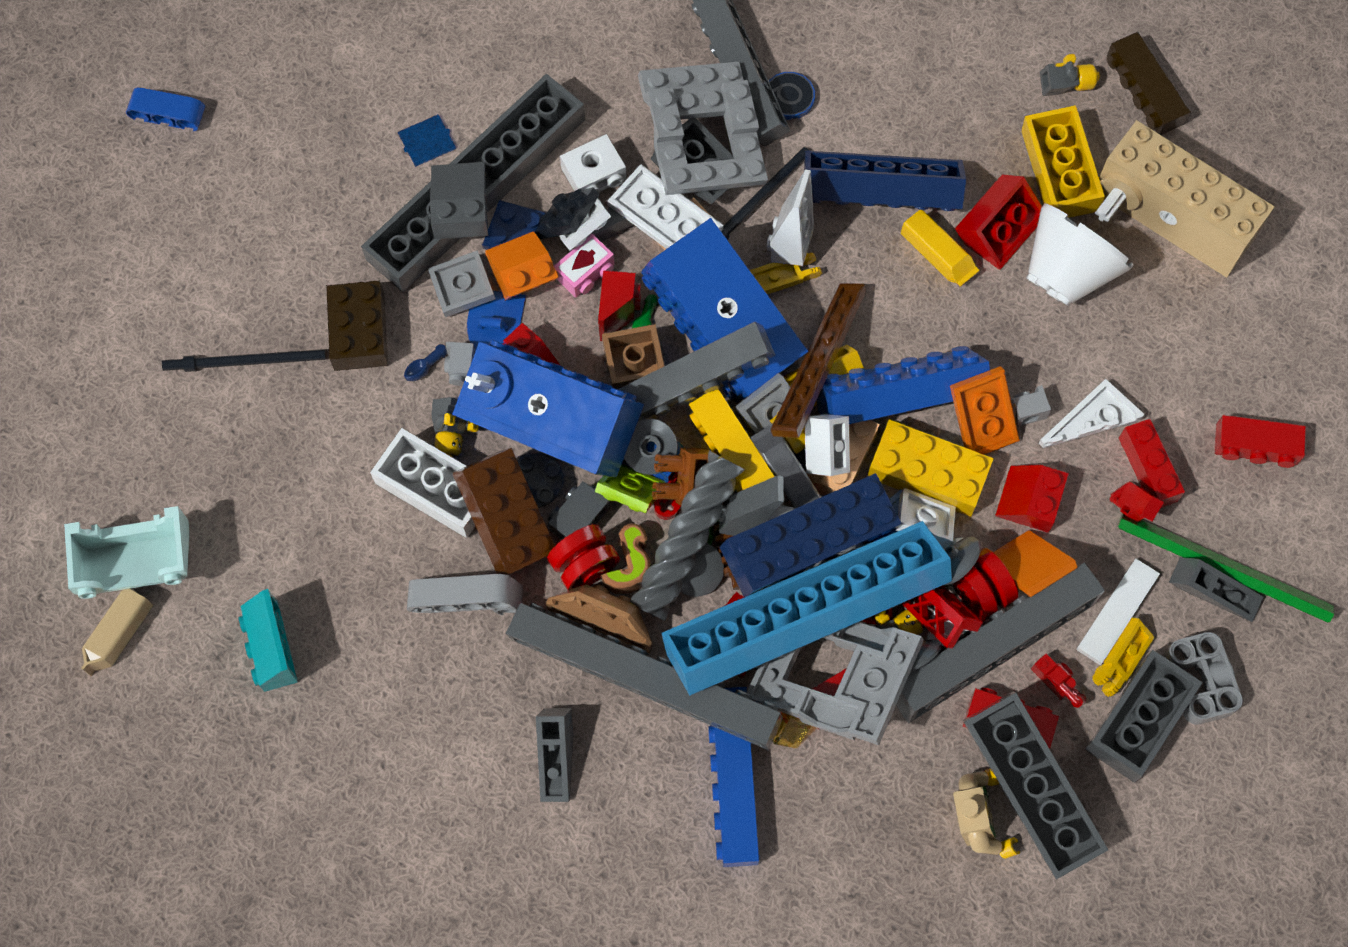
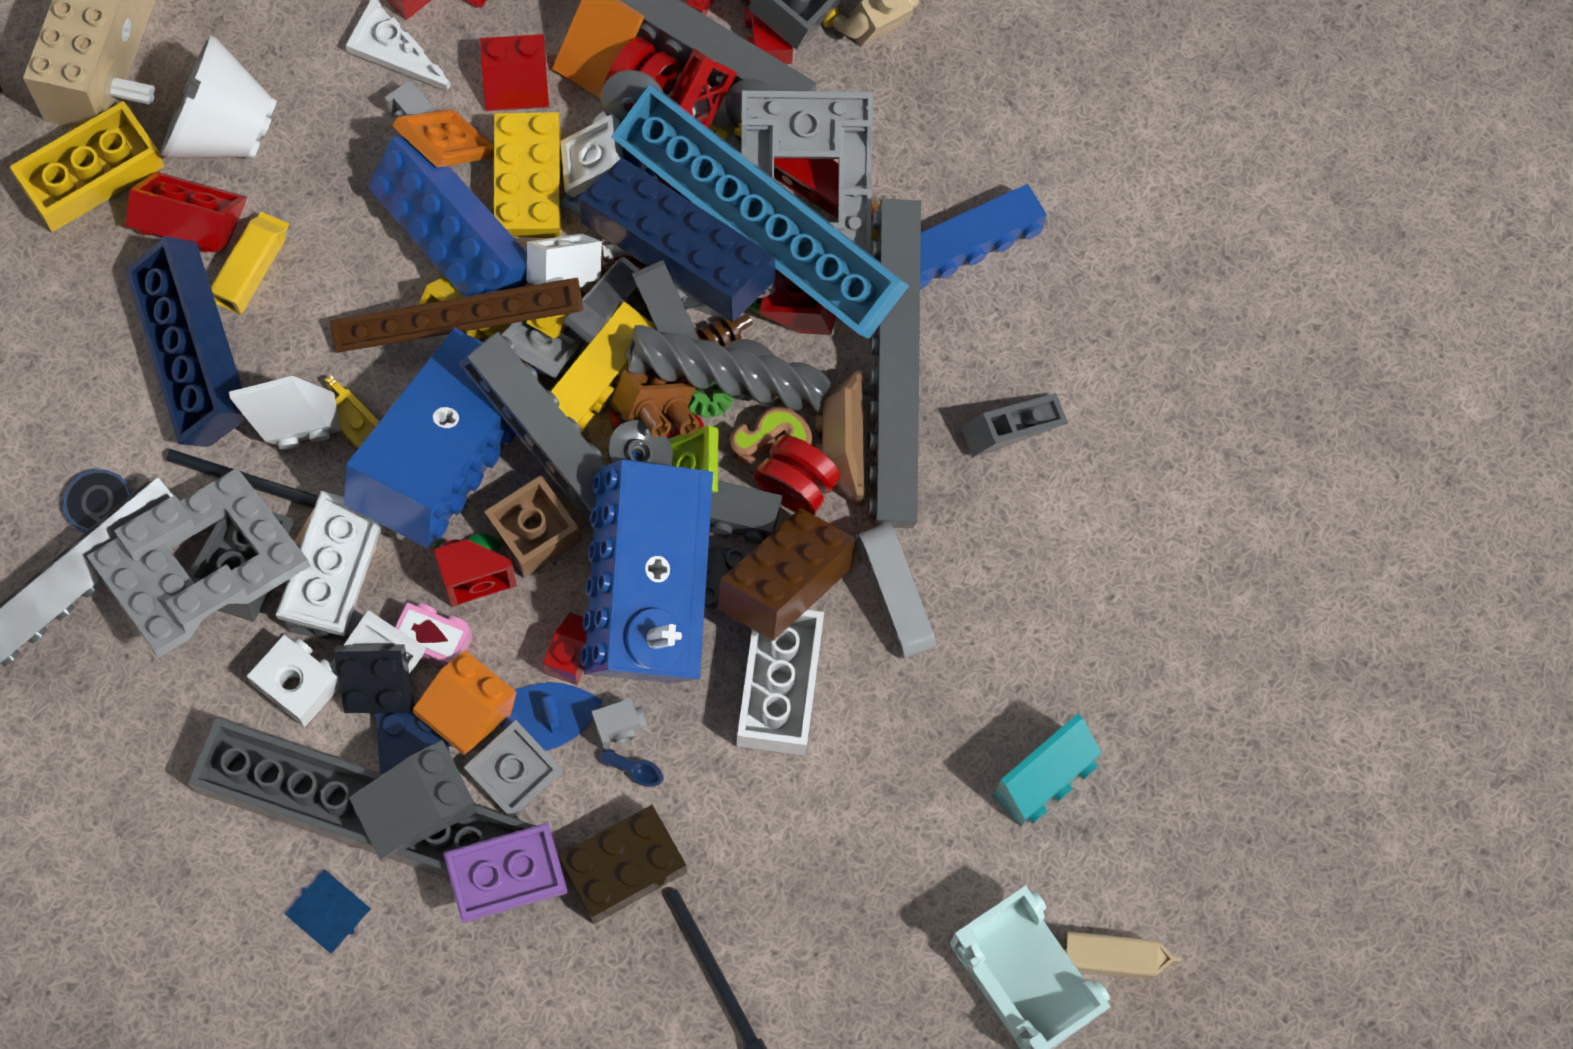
camera: 120 degrees left, 0 degrees up
(381, 239) = (505, 873): none -> medium lavender tile
(449, 427) = (702, 697): piece -> none

